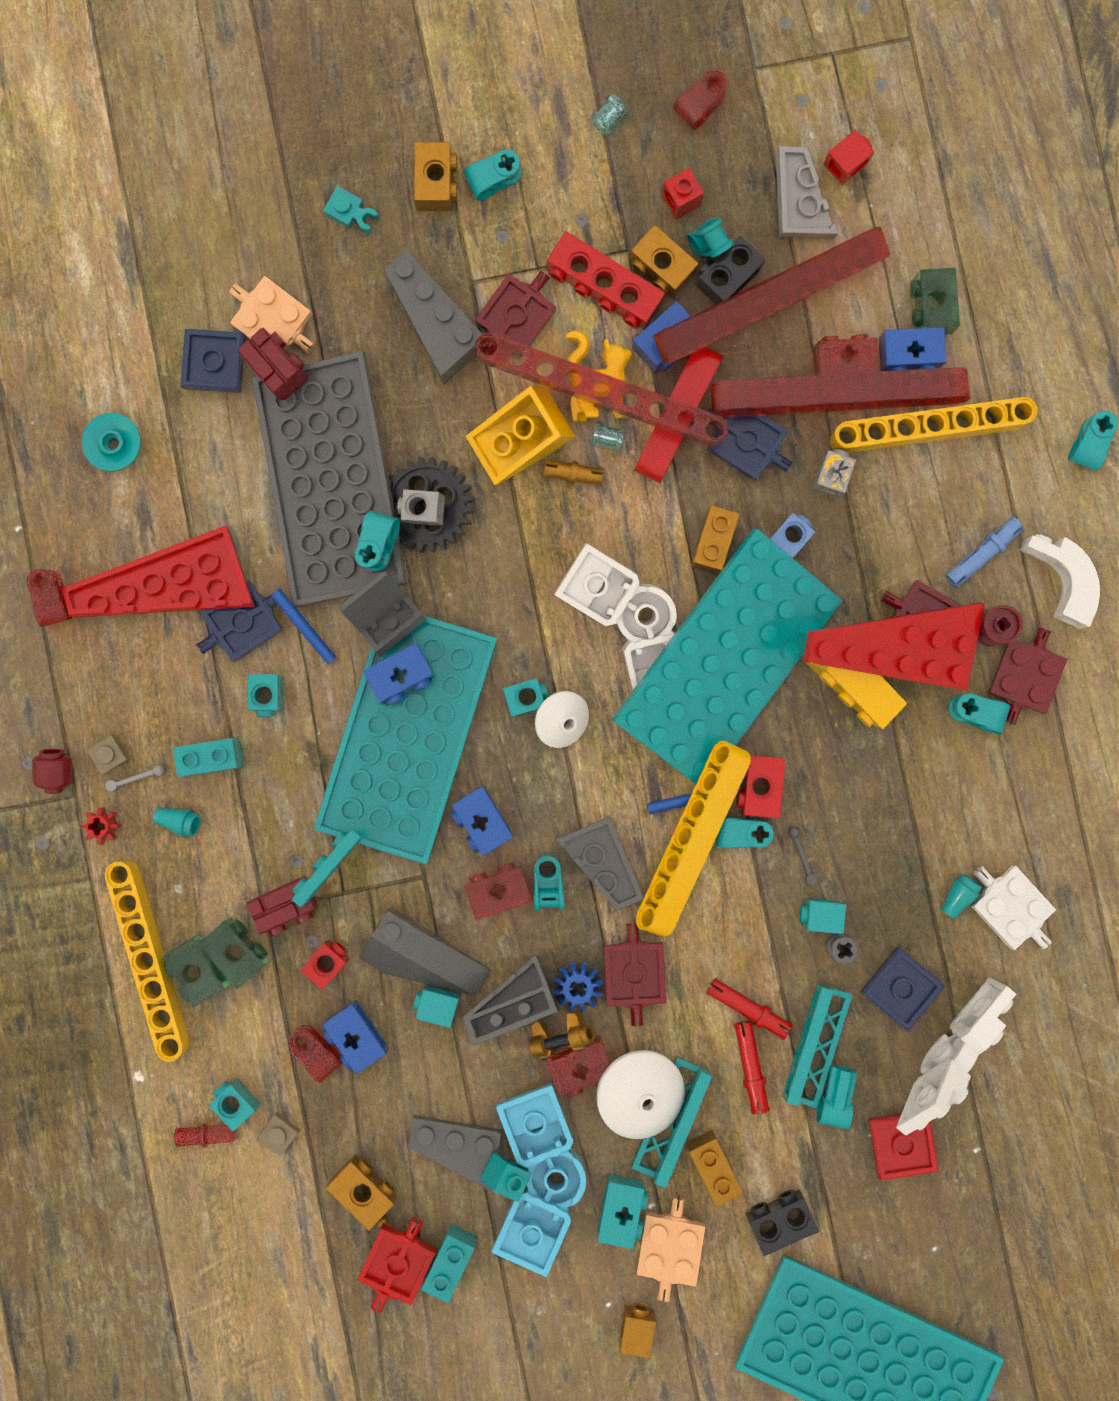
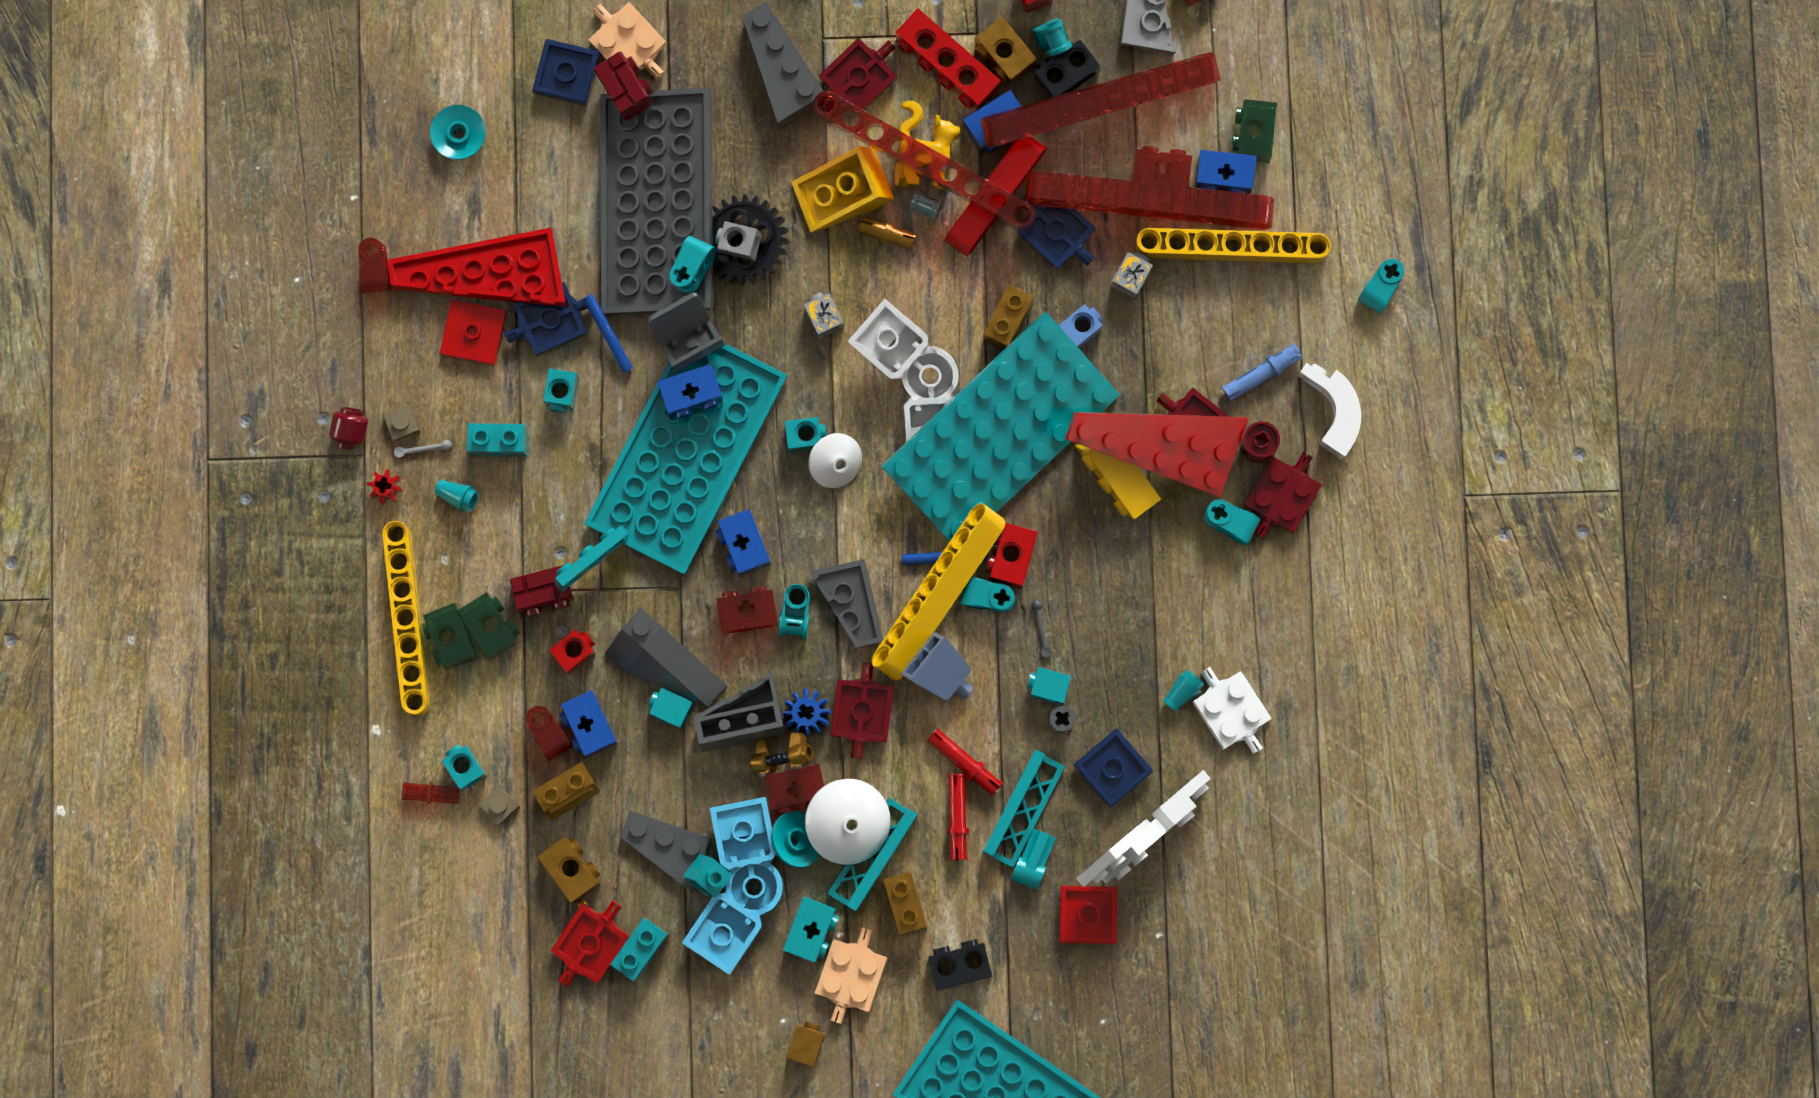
camera: 10 degrees right, 5 degrees down
(165, 648) = (473, 332): none -> red plate
(344, 1110) = (566, 791): none -> pearl gold window
(523, 569) = (823, 314): none -> light grey brick
(596, 1133) = (802, 852): none -> teal dish
(707, 920) = (939, 669): none -> sand blue torso

